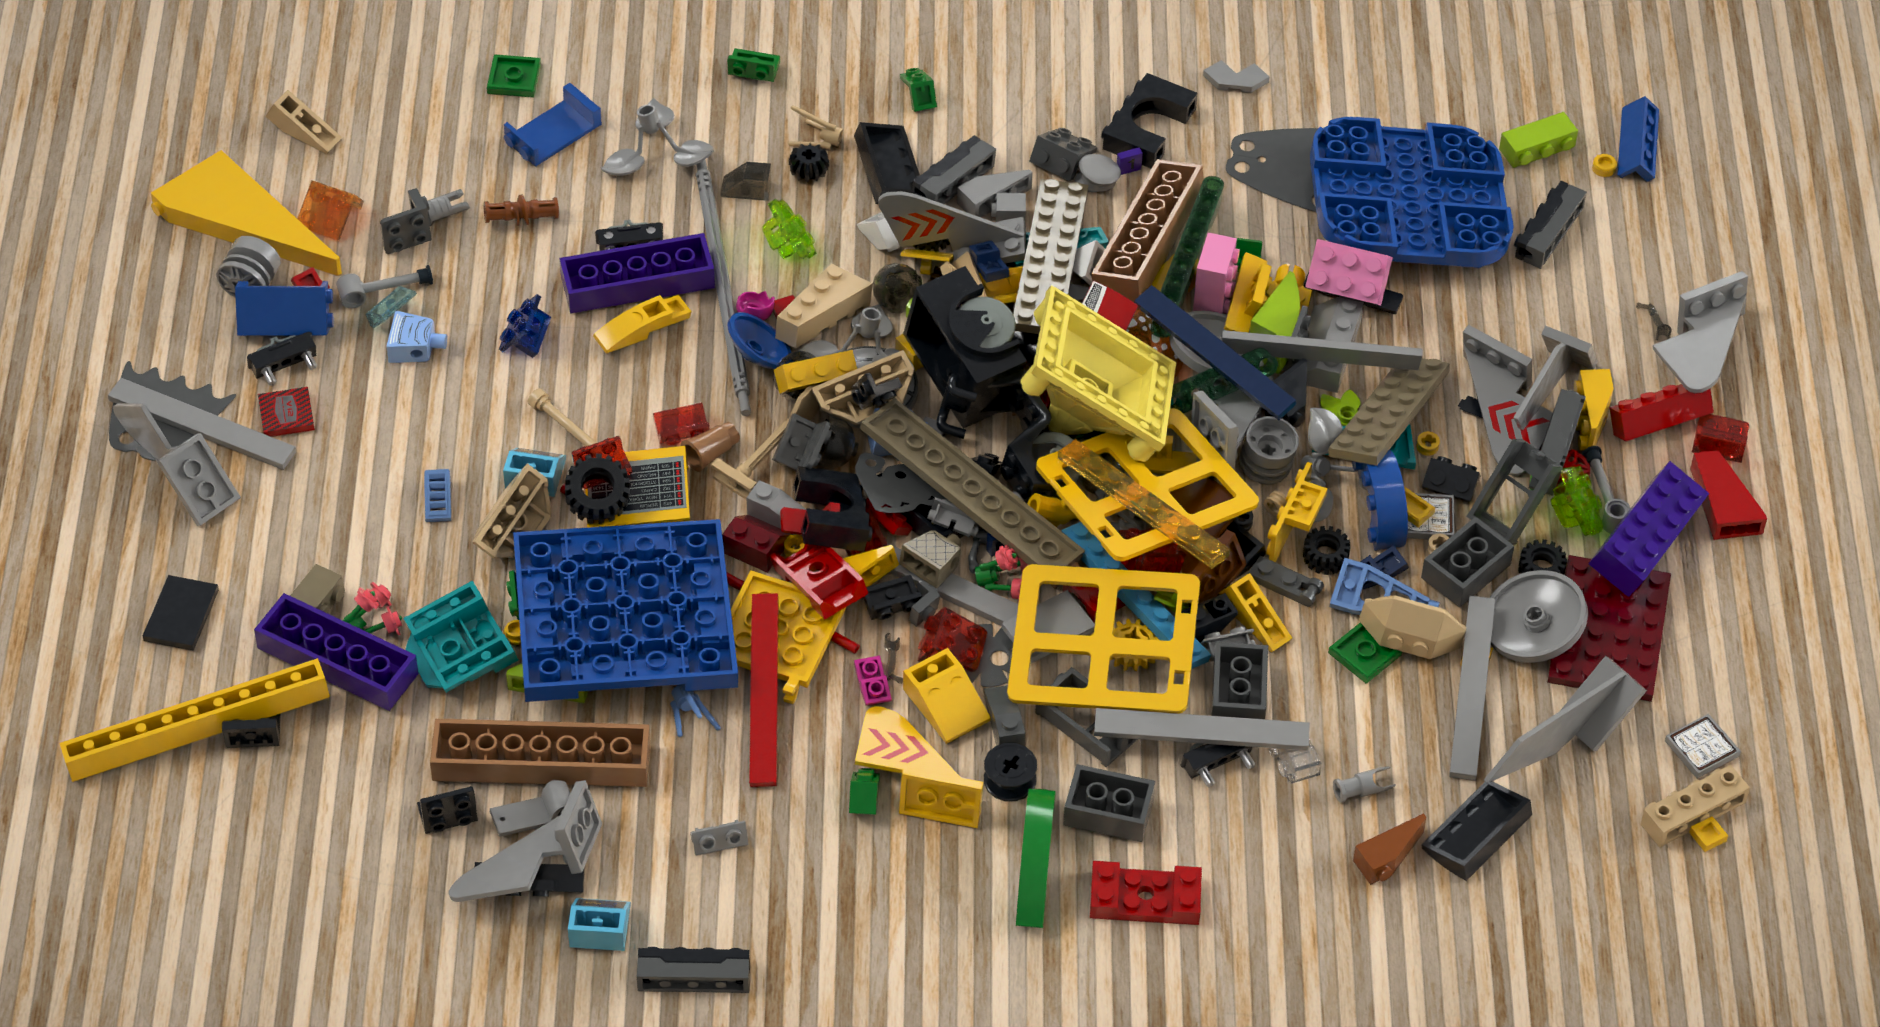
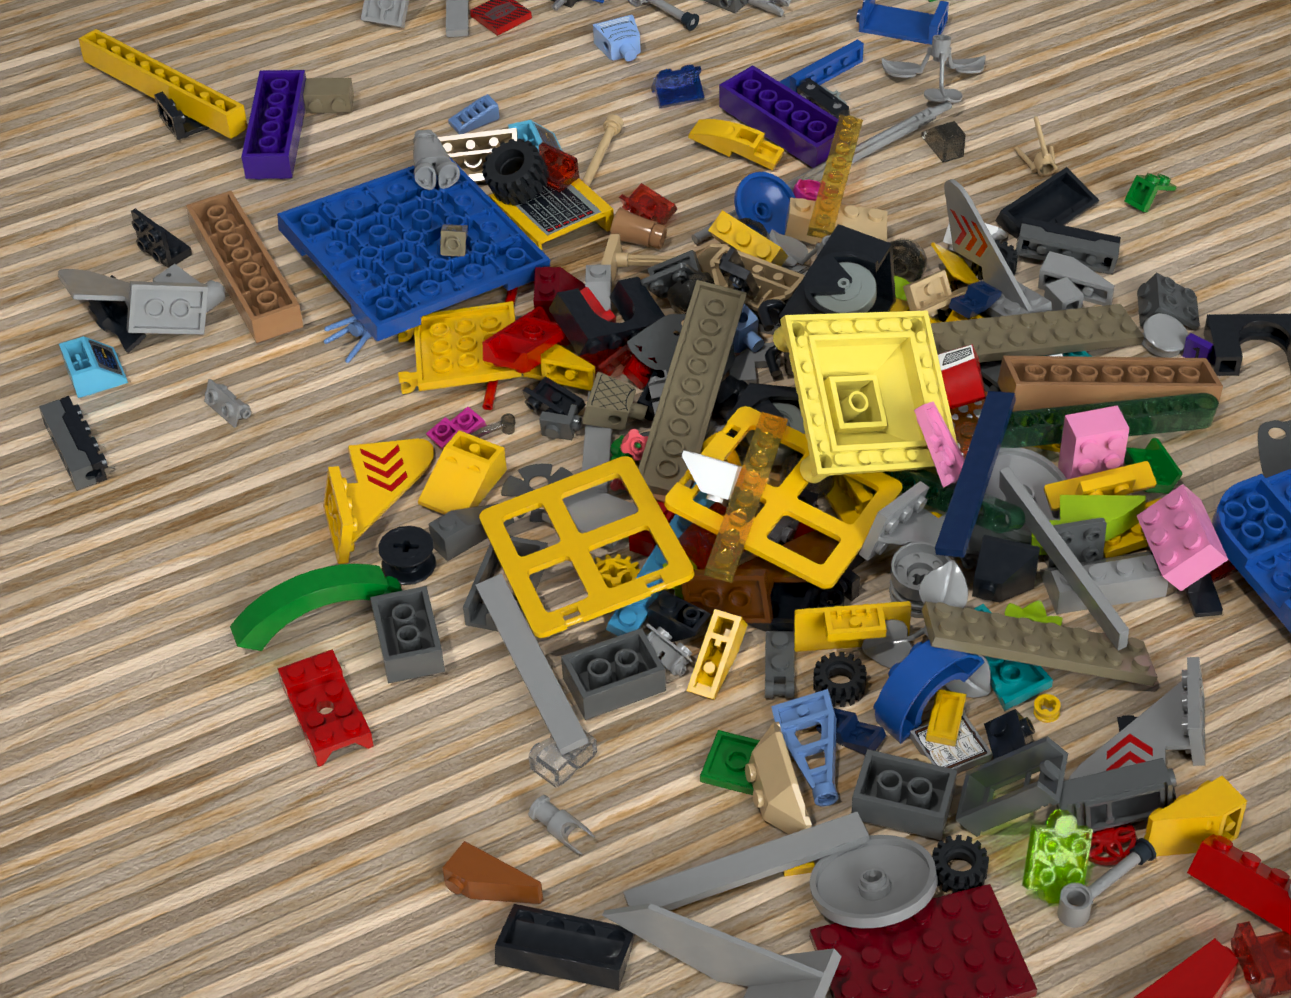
camera: 65 degrees right, 5 degrees down
(180, 612) = (272, 45): black tile -> none
(370, 599) = (314, 123): coral plant -> none
(389, 305) = (642, 15): clear light blue slope -> none
(457, 639) = (333, 171): teal slope -> none
(521, 210) = (797, 36): dark orange piece -> none
(527, 543) = (432, 159): none -> light grey piece
(575, 216) = (829, 66): none -> blue panel
(658, 568) = (453, 240): none -> dark tan bracket
(753, 65) = (1076, 90): green bracket -> none
(764, 690) = (391, 361): red tile -> none
(775, 272) = (835, 177): none -> clear yellow plate
(790, 230) = (908, 177): clear neon green piece -> none
(808, 162) = (999, 162): black gear -> none
(864, 791) = (313, 467): green slope -> none
(957, 634) = (533, 459): clear red bracket -> none
(1118, 510) = (712, 475): none -> white slope
(1167, 359) = (941, 444): none -> bright pink wing
(1210, 756) = (511, 687): black piece -> none
(1564, 351) = (1195, 753): light grey piece -> none
(1648, 529) = (1065, 932): dark purple brick -> none

